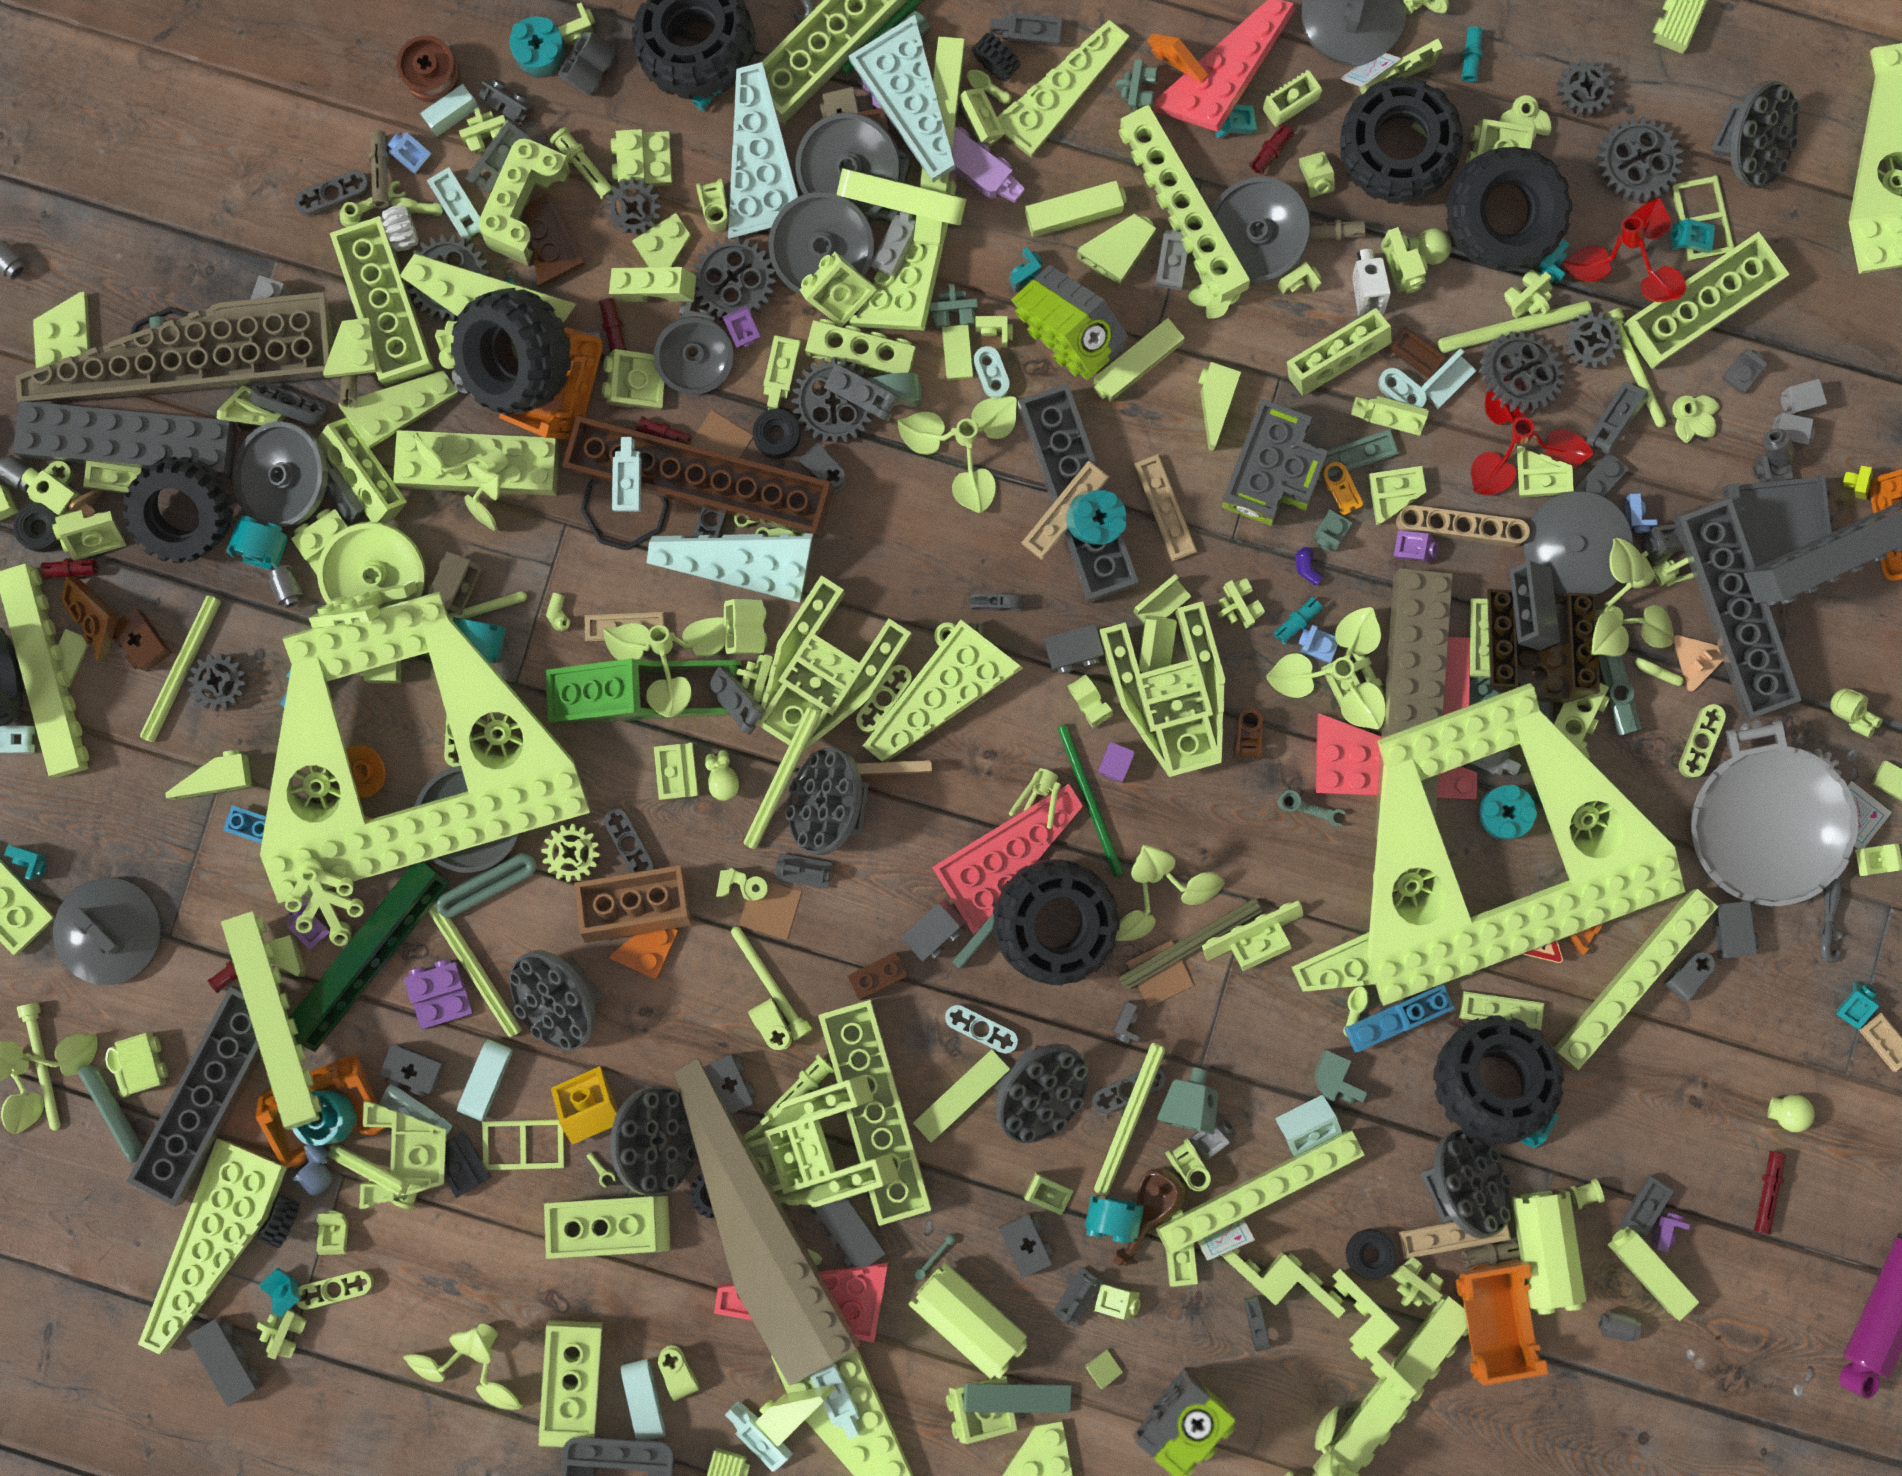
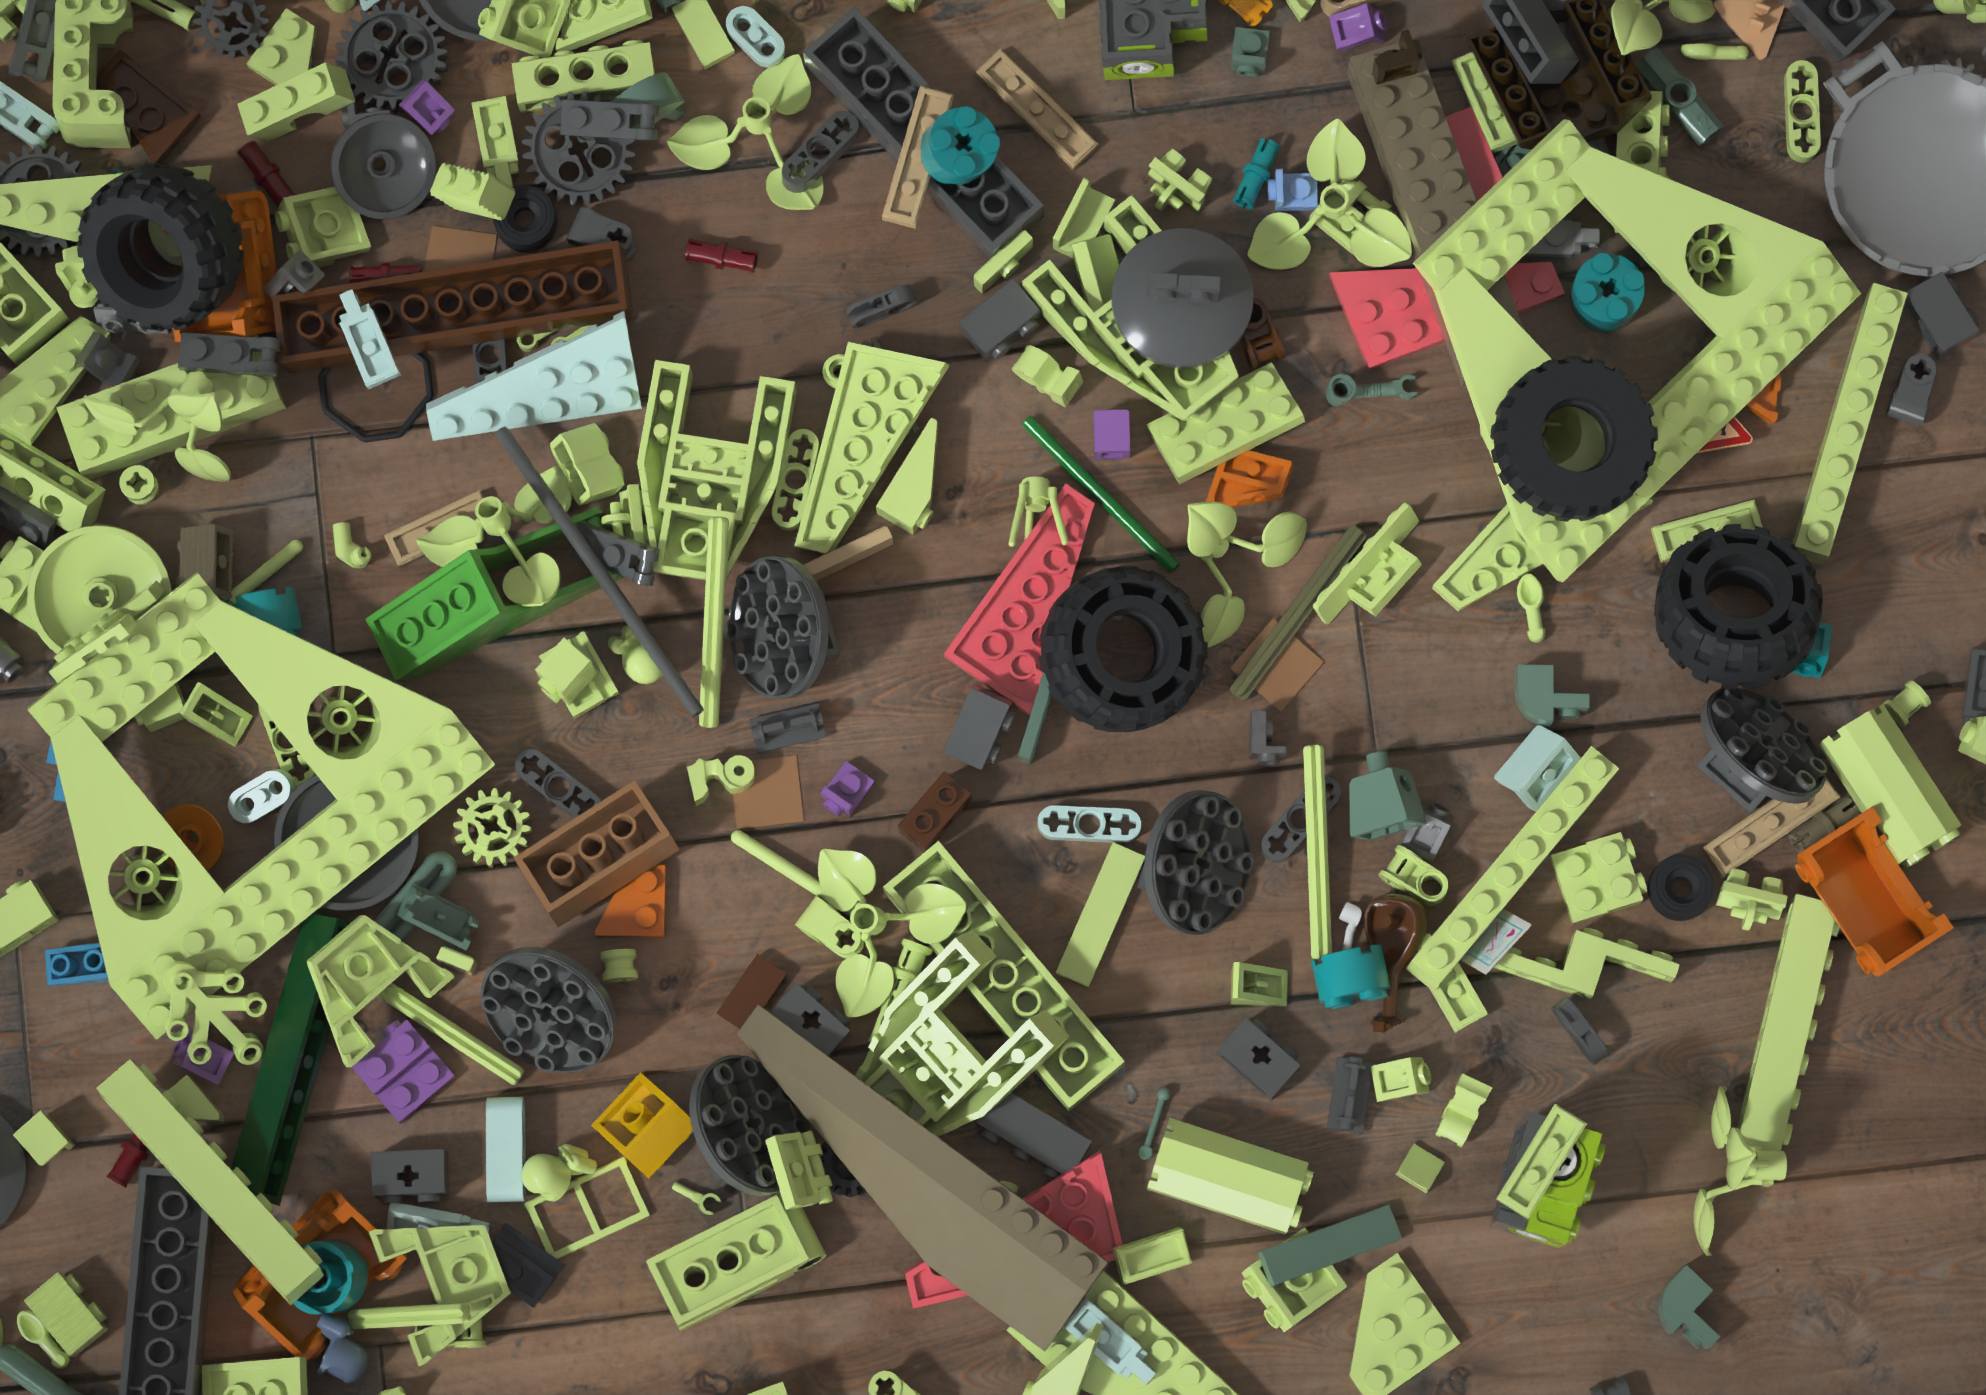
camera: 25 degrees left, 5 degrees down
(176, 935) = (42, 1138): none -> yellowish green panel
(416, 691) = (215, 714): none -> yellowish green slope
(425, 762) = (262, 793): none -> light aqua plate
(434, 914) = (356, 970): none -> yellowish green wing
(437, 510) = (145, 488): none -> yellowish green wheel
(447, 411) = (107, 360): none -> flat silver bracket
(506, 899) = (438, 915): none -> sand green hinge
(507, 935) = (457, 960): none -> yellowish green tile
(507, 1112) = (552, 1174): none -> yellowish green piece
(528, 444) = (228, 354): none -> dark grey plate
(601, 407) = (297, 273): none -> flat silver bracket
(616, 987) = (619, 965): none -> yellowish green wheel
(663, 770) = (564, 672): none -> yellowish green brick
(675, 1188) = (799, 1169): none -> yellowish green plate
(699, 1044) = (754, 988): none -> reddish brown tile
(718, 708) = (599, 572): none -> dark grey piece
(747, 400) = (472, 191): none -> yellowish green brick
(824, 932) = (846, 790): none -> medium lavender bracket
(842, 1053) = (932, 915): none -> yellowish green plant
(892, 1349) = (1151, 1255): none -> yellowish green tile
(900, 518) = (721, 255): none -> dark red pin
(960, 741) = (911, 490): none -> yellowish green slope
(981, 474) = (818, 166): none -> dark grey beam
(1094, 608) = (1004, 262): none -> yellowish green plate
(1134, 1172) = (1350, 914): none -> white hand
(1149, 1344) = (1463, 1109): none -> yellowish green leg
(1184, 1422) = (1541, 1161): none -> yellowish green tile
(1196, 835) = (1250, 479): none -> orange wing
(1202, 792) = (1227, 425): none -> yellowish green plate
(1205, 691) = (1182, 298): none -> dark grey bracket
(1304, 566) = (1235, 106): dark purple arm -> none
(1316, 1221) = (1598, 877): none -> yellowish green plate
(1374, 1336) = (1727, 978): yellowish green bracket -> none
(1399, 1018) = (1588, 591): dark azure slope -> none
(1428, 589) = (1398, 64): none -> dark brown bracket
(1474, 925) = (1610, 401): none -> black tyre

